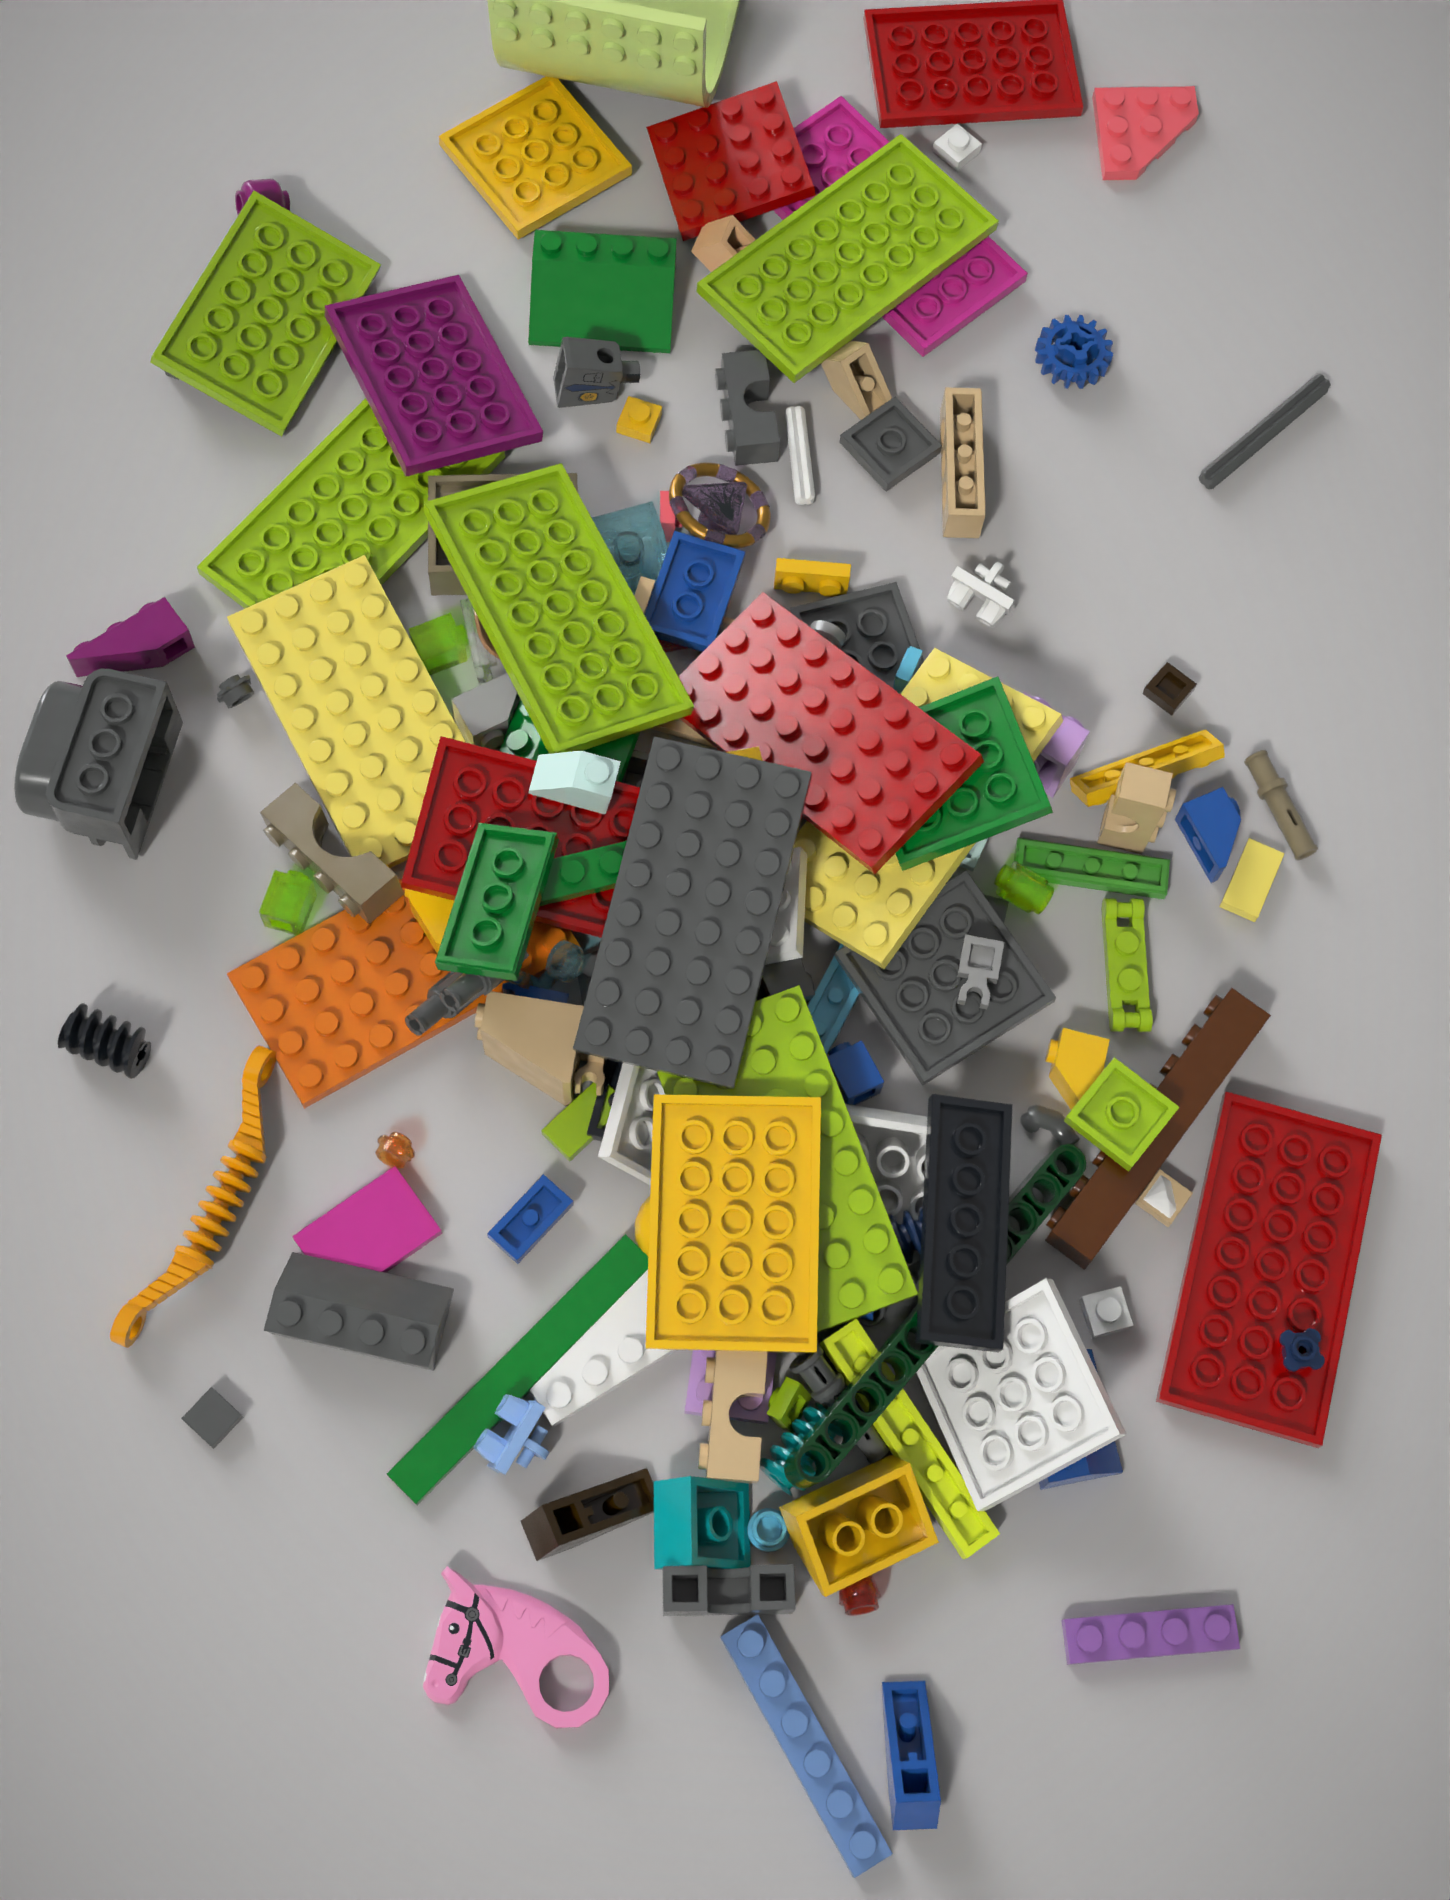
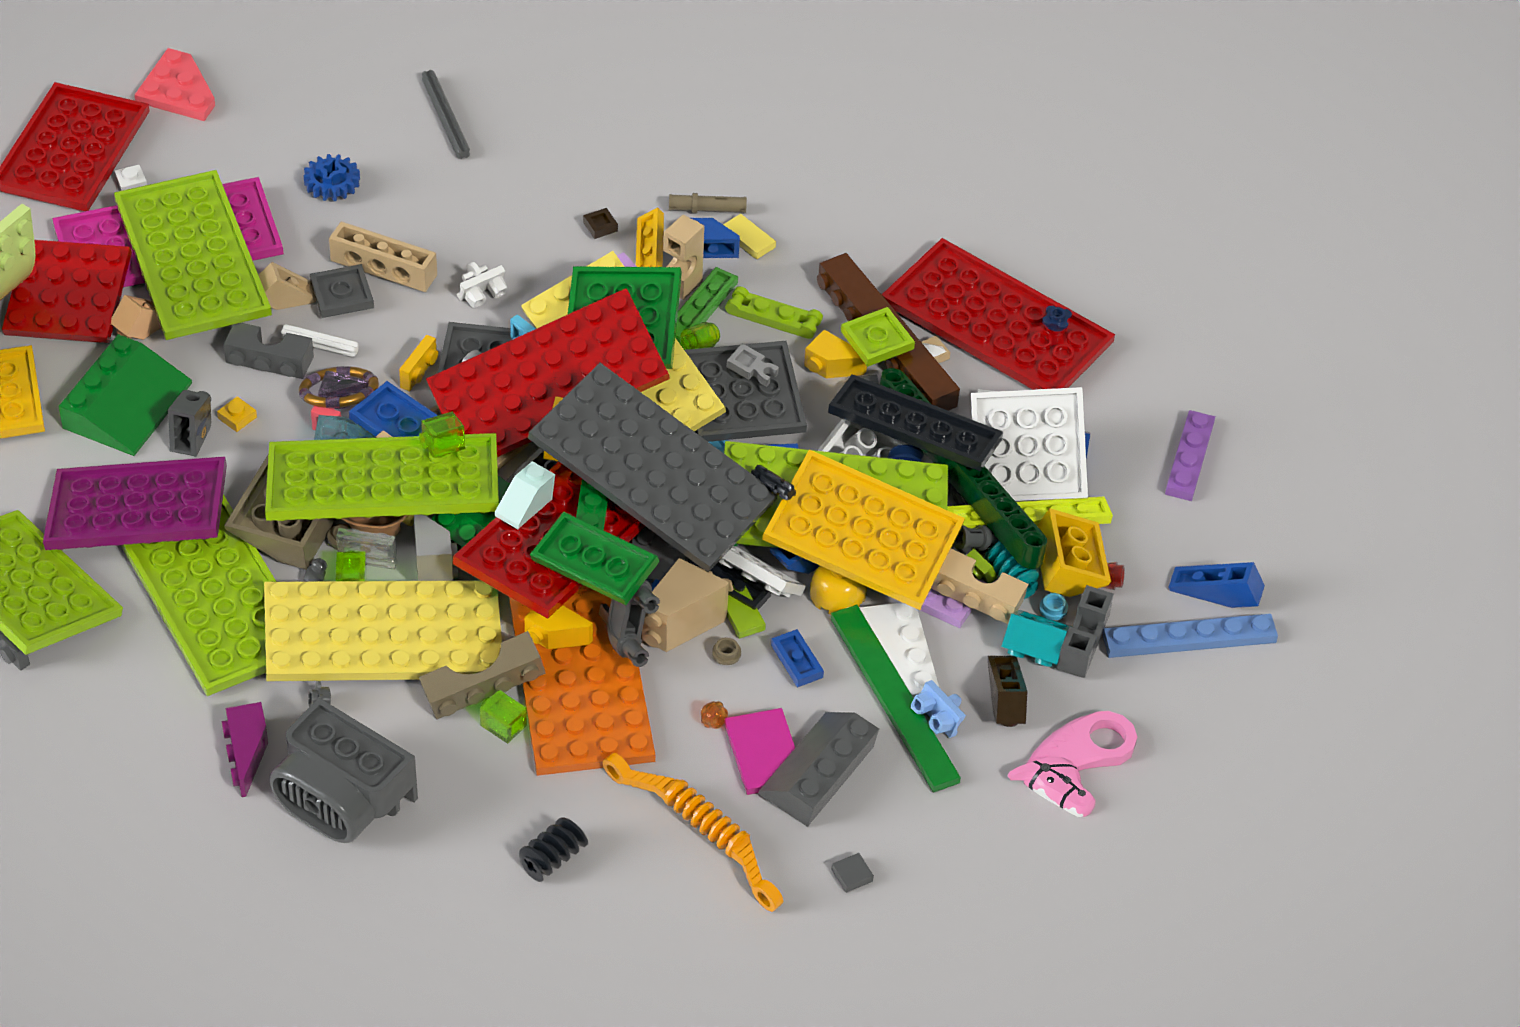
camera: 65 degrees left, 20 degrees down
(421, 609) = (316, 571): none -> dark grey arm
(502, 1116) = (724, 646): none -> dark tan plate
(642, 643) = (442, 435): none -> clear neon green brick
(740, 1073) = (774, 482): none -> black axle

